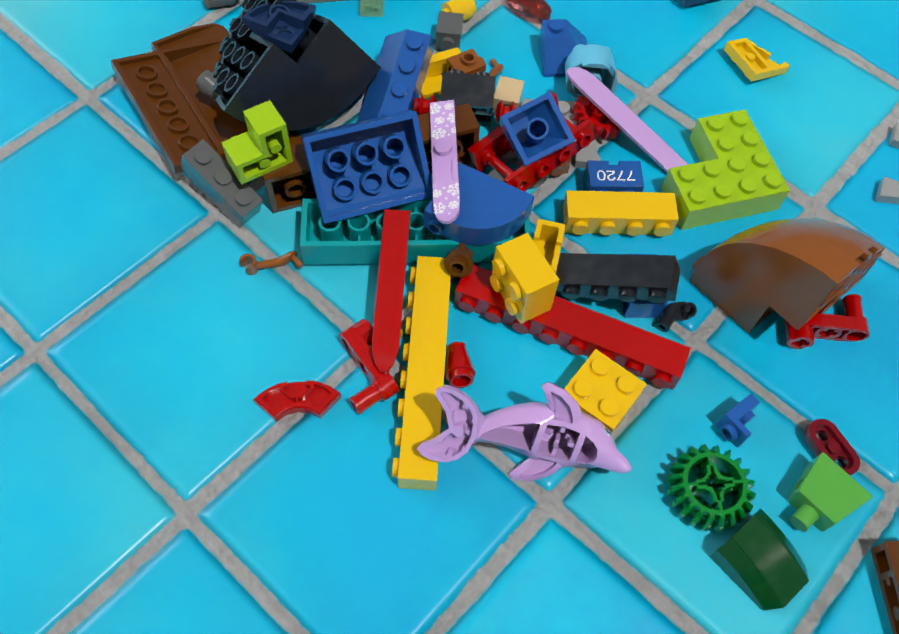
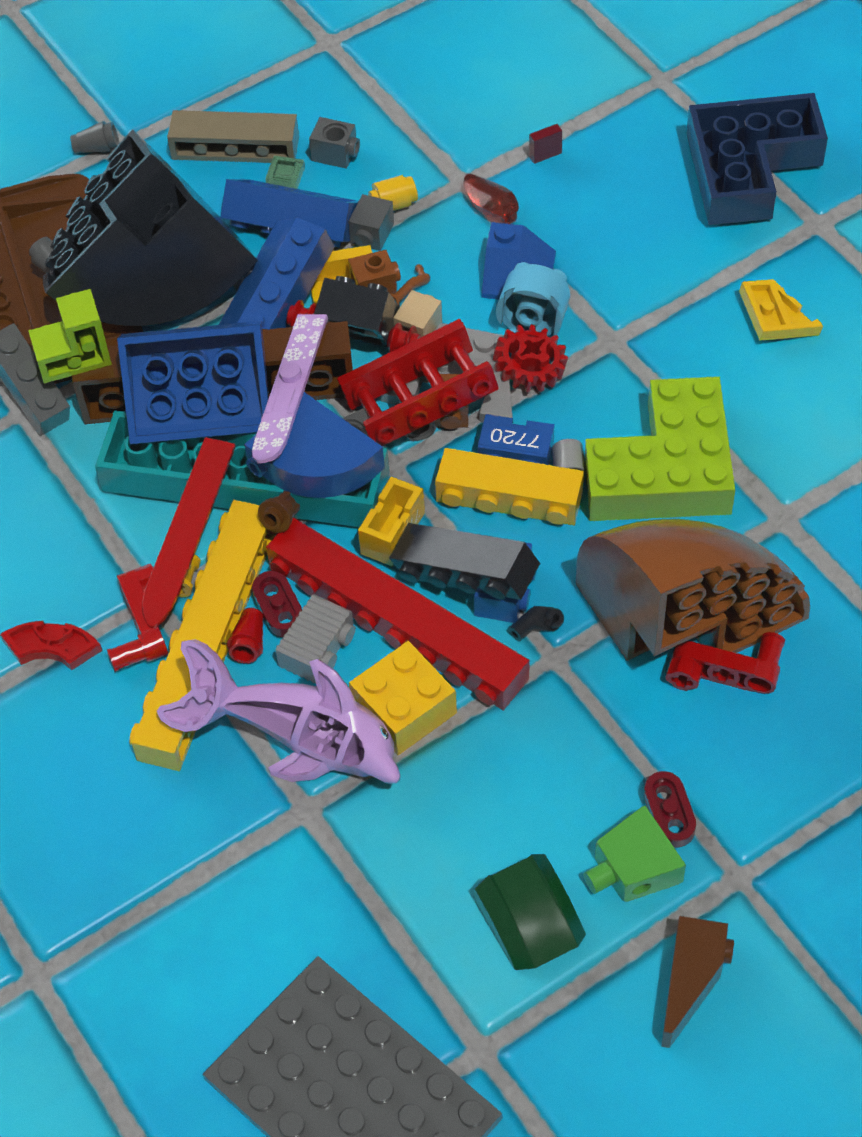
camera: 20 degrees right, 5 degrees down
(276, 262) = (41, 483): dark orange piece -> none
(281, 23) = (137, 194): dark blue brick -> none
(373, 27) = (265, 203): none -> blue slope
(476, 335) = (280, 605): none -> dark red plate
(514, 358) = (315, 635): none -> light grey brick
(523, 278) = (338, 543): yellow brick -> none
(536, 129) = (414, 365): blue slope -> none
(624, 118) = (554, 367): lavender piece -> none
(655, 182) = (569, 454): none -> light grey beam
(710, 465) = (470, 815): green gear -> none
(734, 421) = (561, 750): blue bracket -> none

